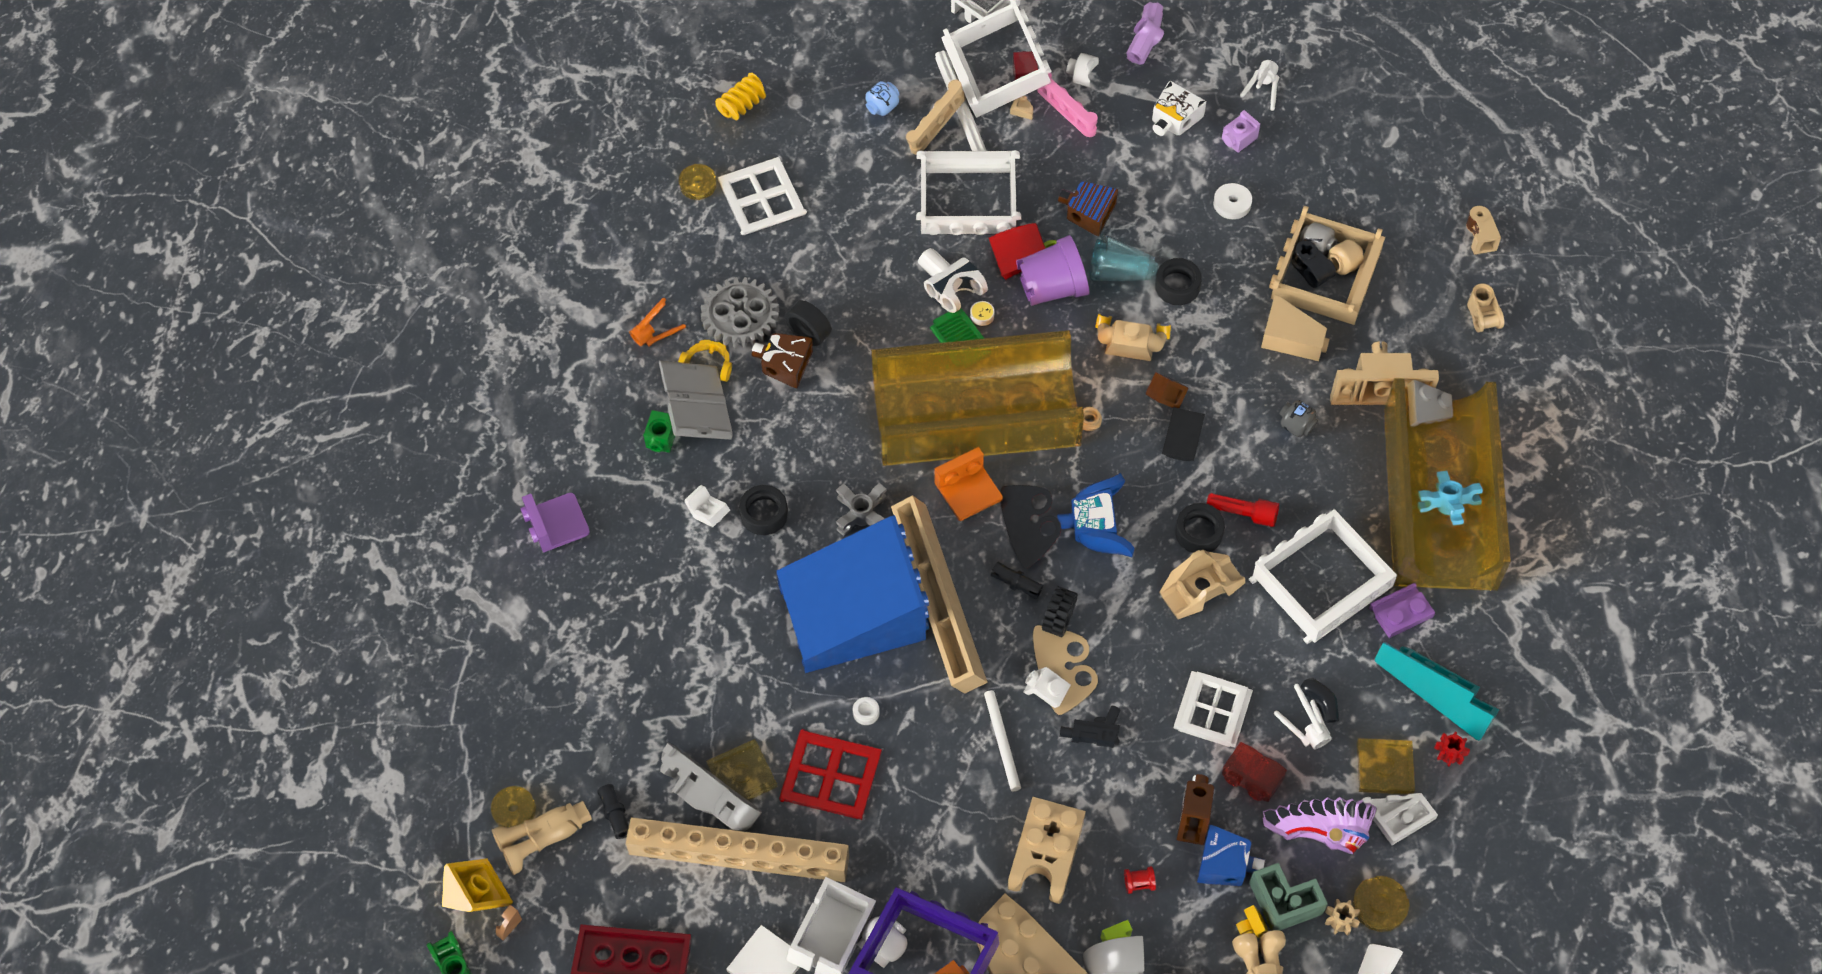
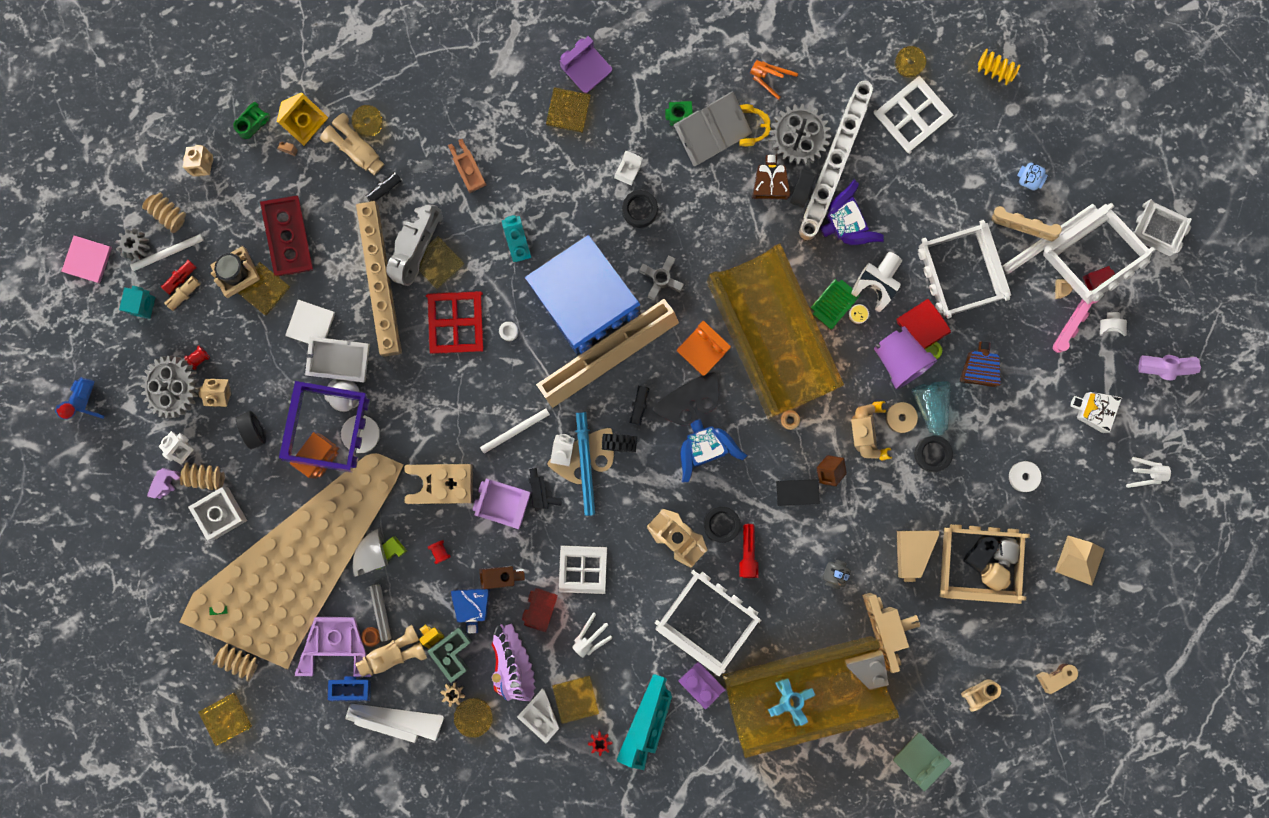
camera: 65 degrees right, 25 degrees up
(602, 559) = (568, 110): none -> clear yellow tile
(627, 698) = (467, 168): none -> nougat hinge
(745, 661) = (516, 238): none -> teal bracket
(767, 269) = (840, 148): none -> white beam
(865, 290) = (847, 220): none -> dark purple torso
(940, 945) = (369, 435): none -> white tile
(1073, 665) = (585, 463): none -> dark azure axle
(1097, 780) = (501, 503): none -> lavender panel
(1127, 295) = (909, 413): none -> tan piece
(1241, 132) = (1084, 466): lavender brick -> none
(1324, 697) = (614, 644): black arm -> none
(1346, 175) = (1080, 560): none -> tan slope
(1556, 391) = (921, 761): none -> sand green bracket

